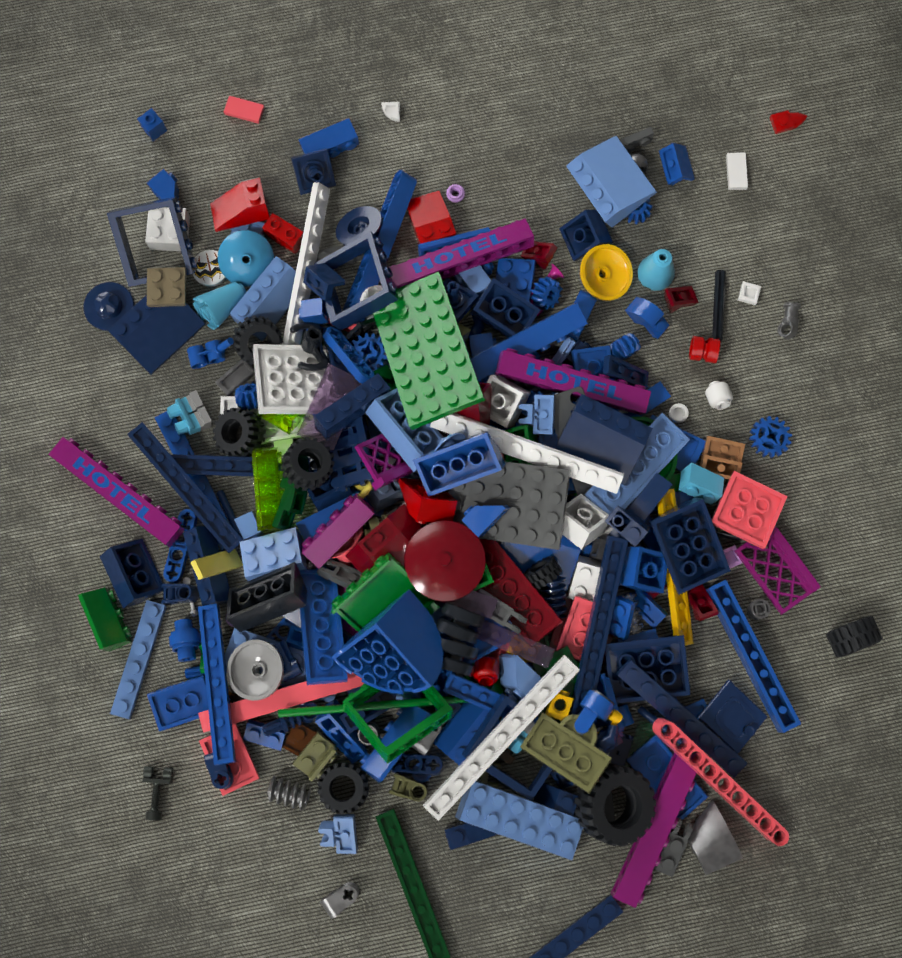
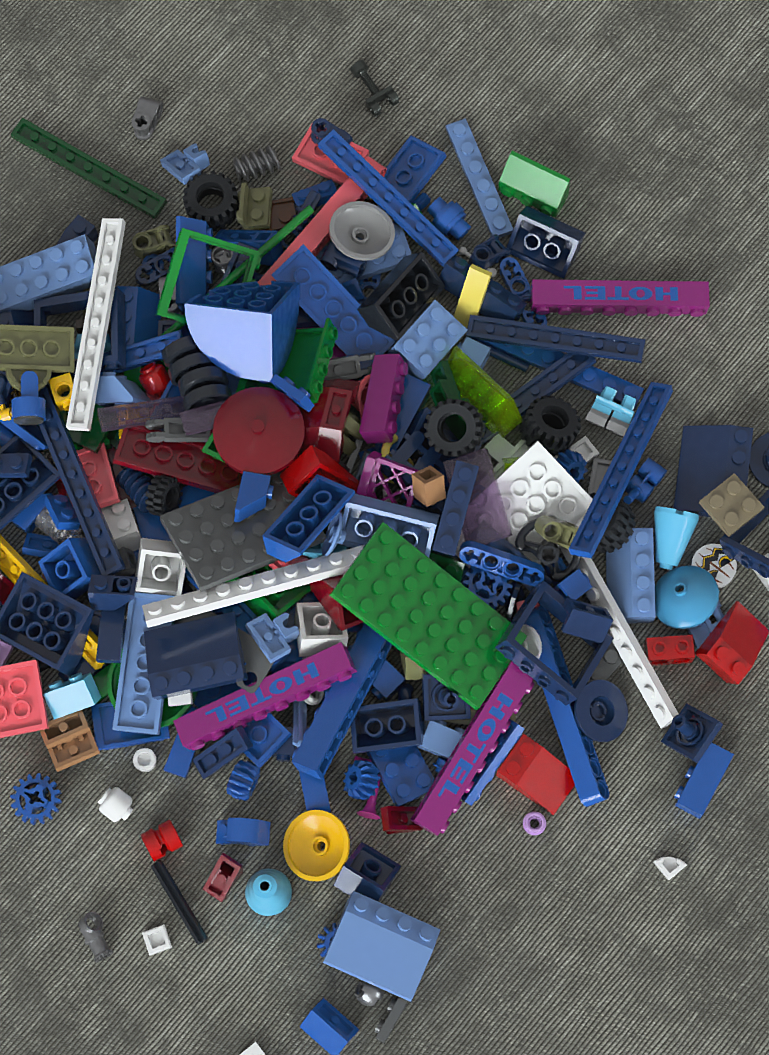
camera: 145 degrees right, 5 degrees down
(218, 360) = (620, 470): none -> blue plate
(295, 348) = (560, 533): none -> olive piece
(358, 432) = (428, 486): none -> medium nougat brick
(399, 562) = (299, 396): none -> blue plate

